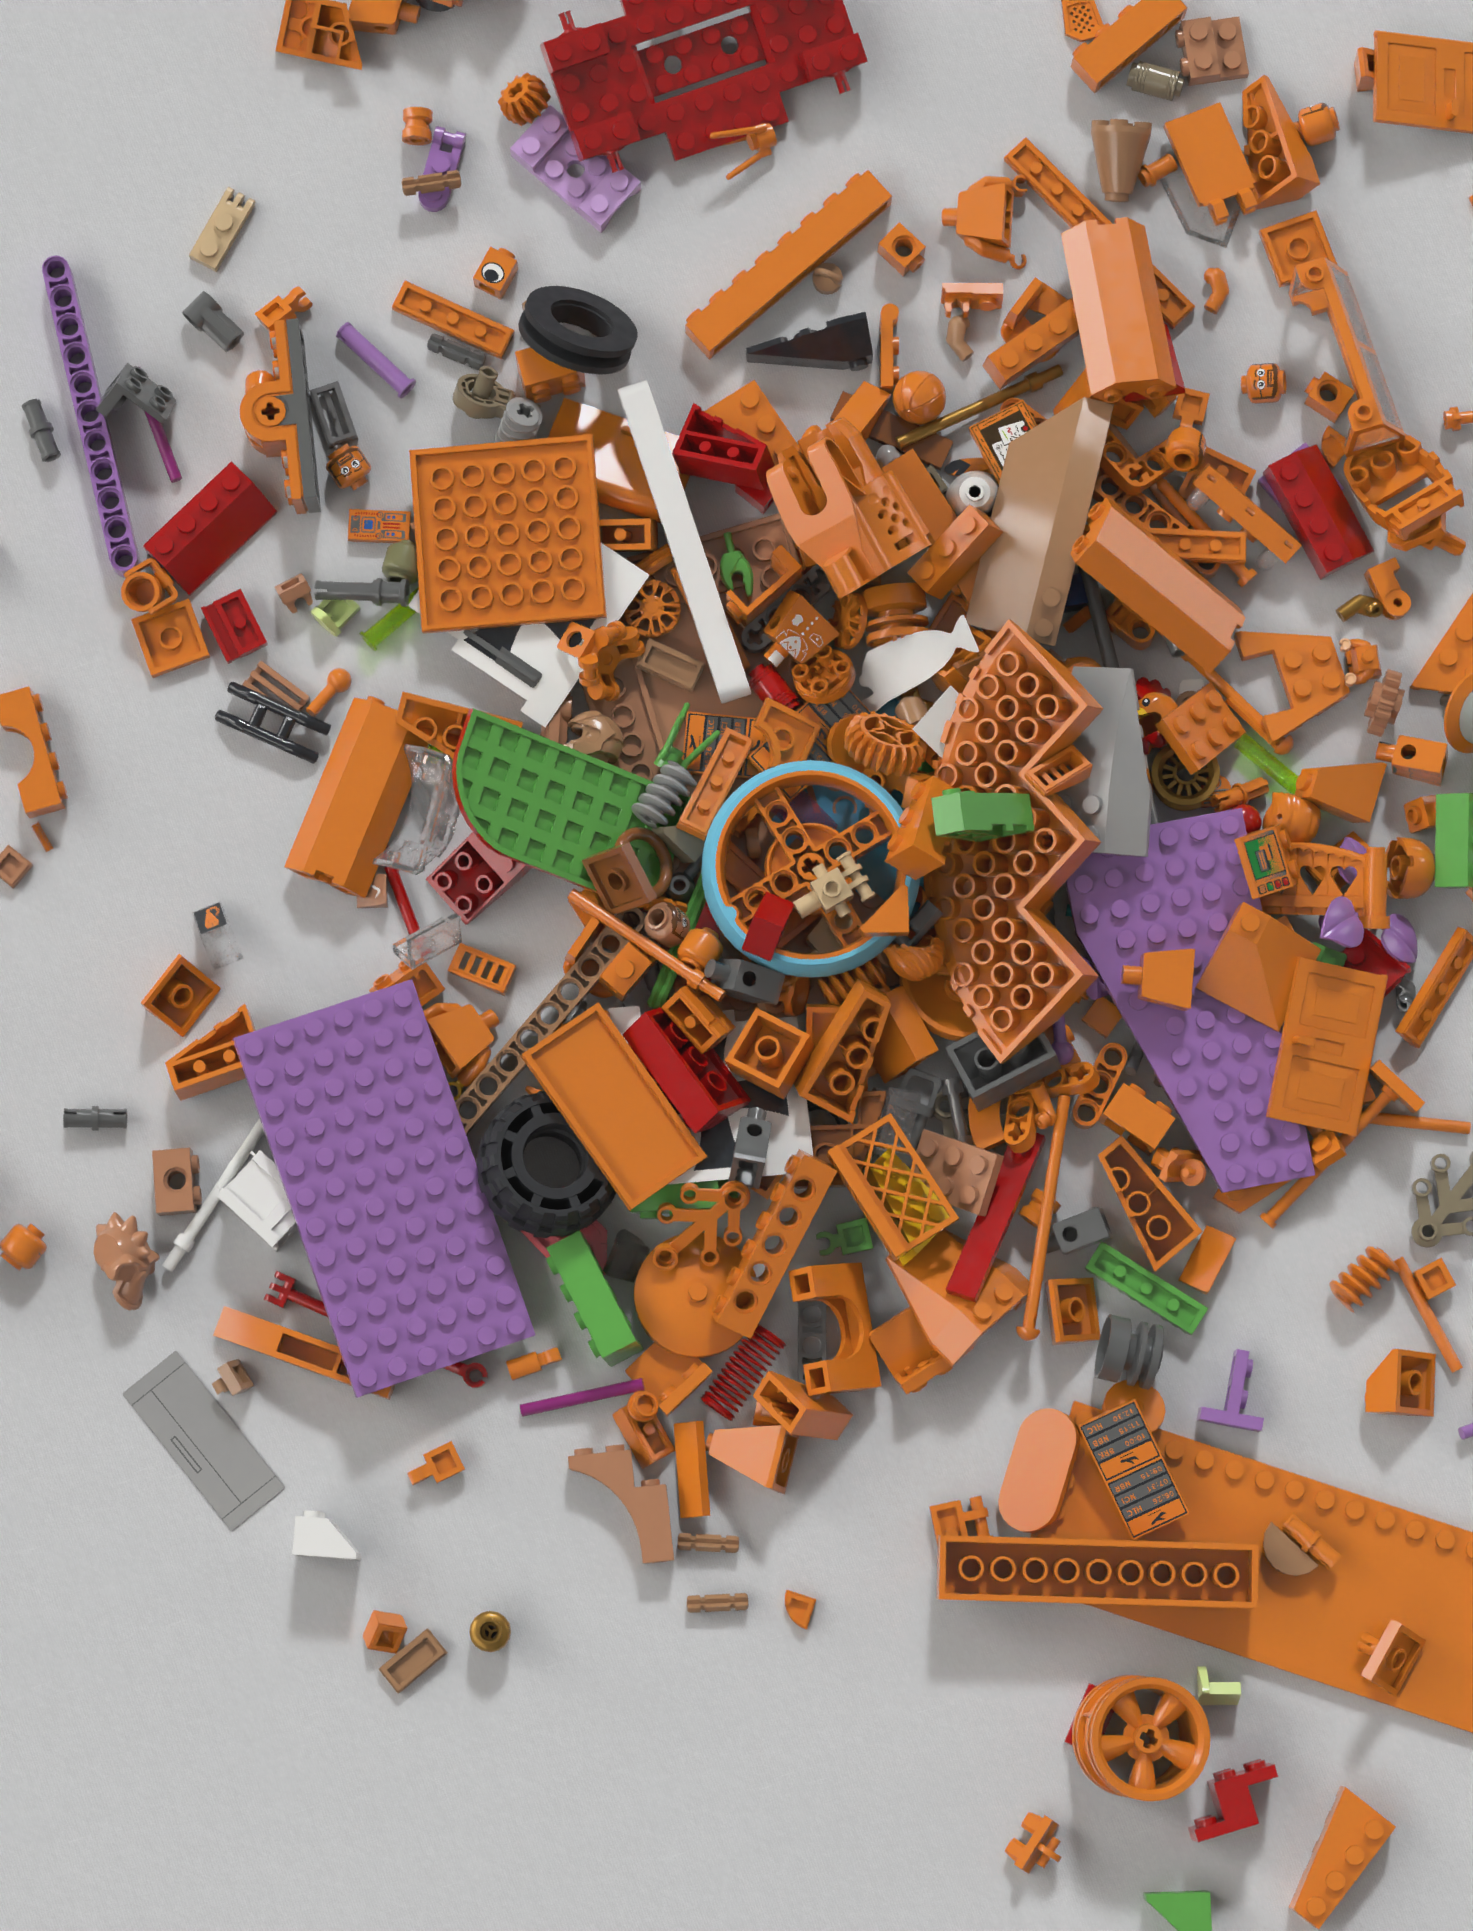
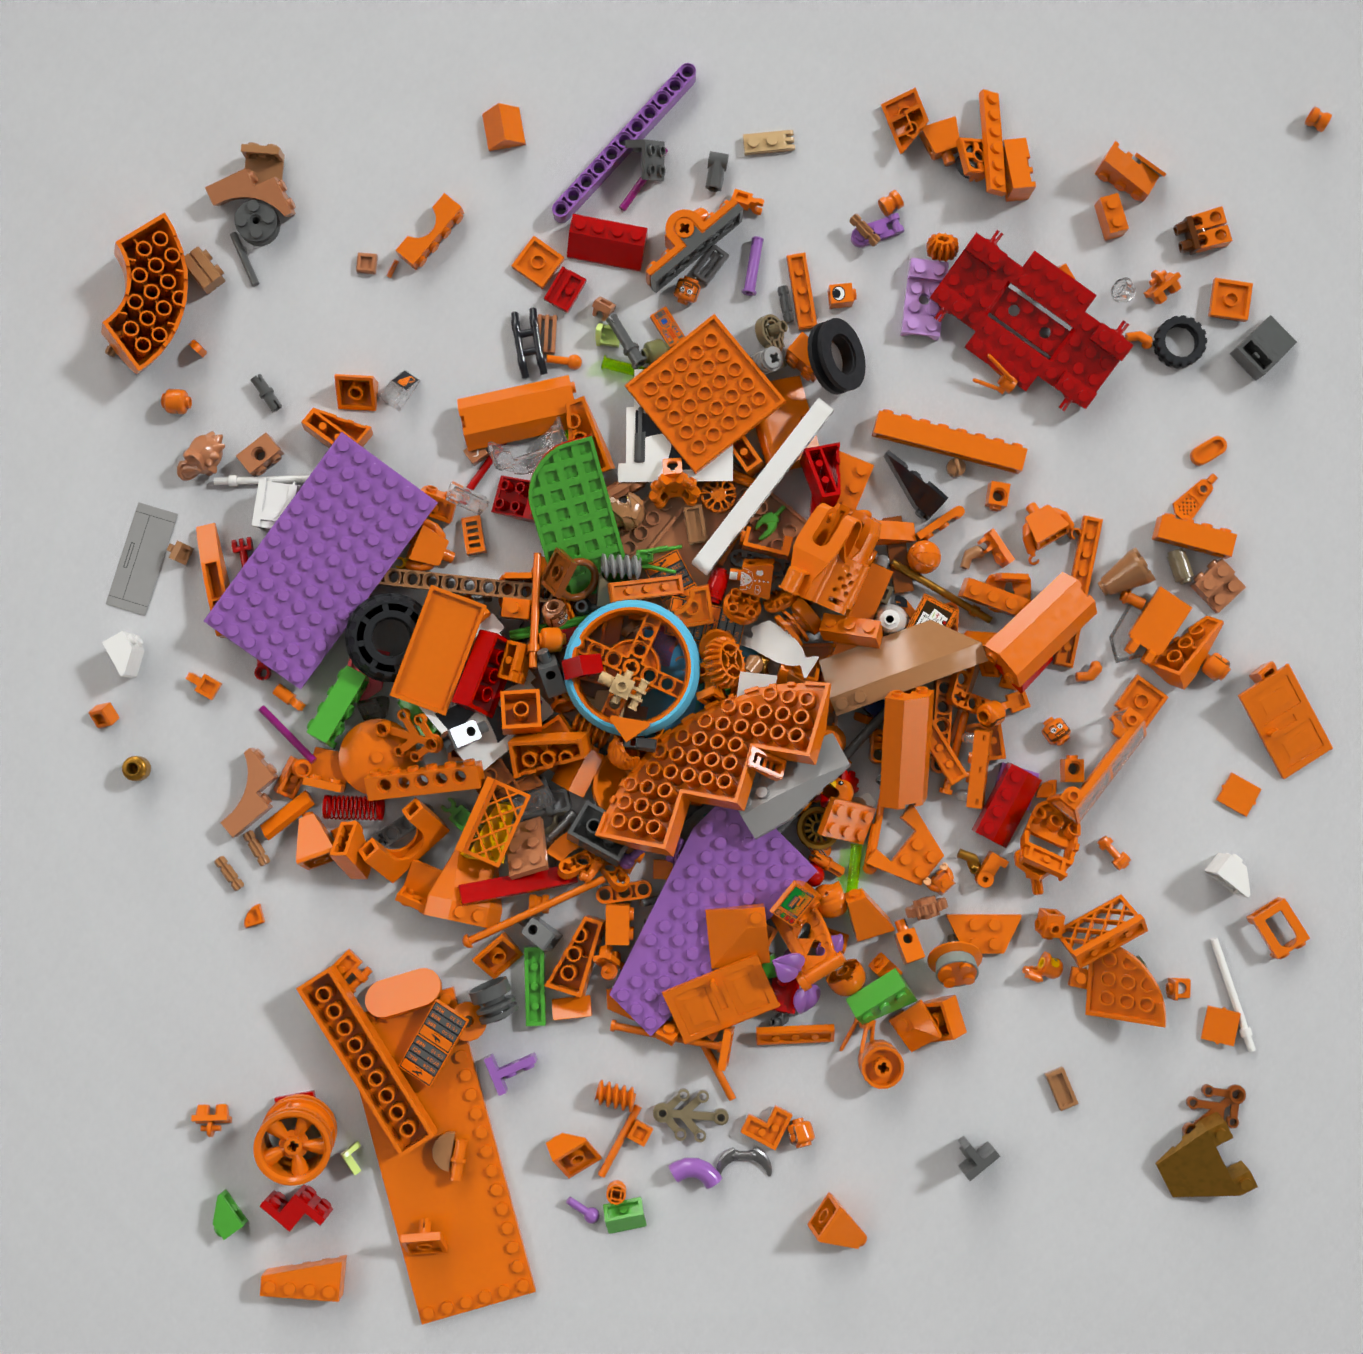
camera: 55 degrees right, 5 degrees up
(41, 430) = (600, 123): dark grey pin -> none
(147, 591) = (550, 231): orange piece -> none
(413, 1660) = (99, 739): medium nougat tile -> none
(915, 846) = (688, 713): orange wedge -> none
(981, 815) = (713, 738): bright green wedge -> none
(1163, 978) = (698, 890): orange torso -> none

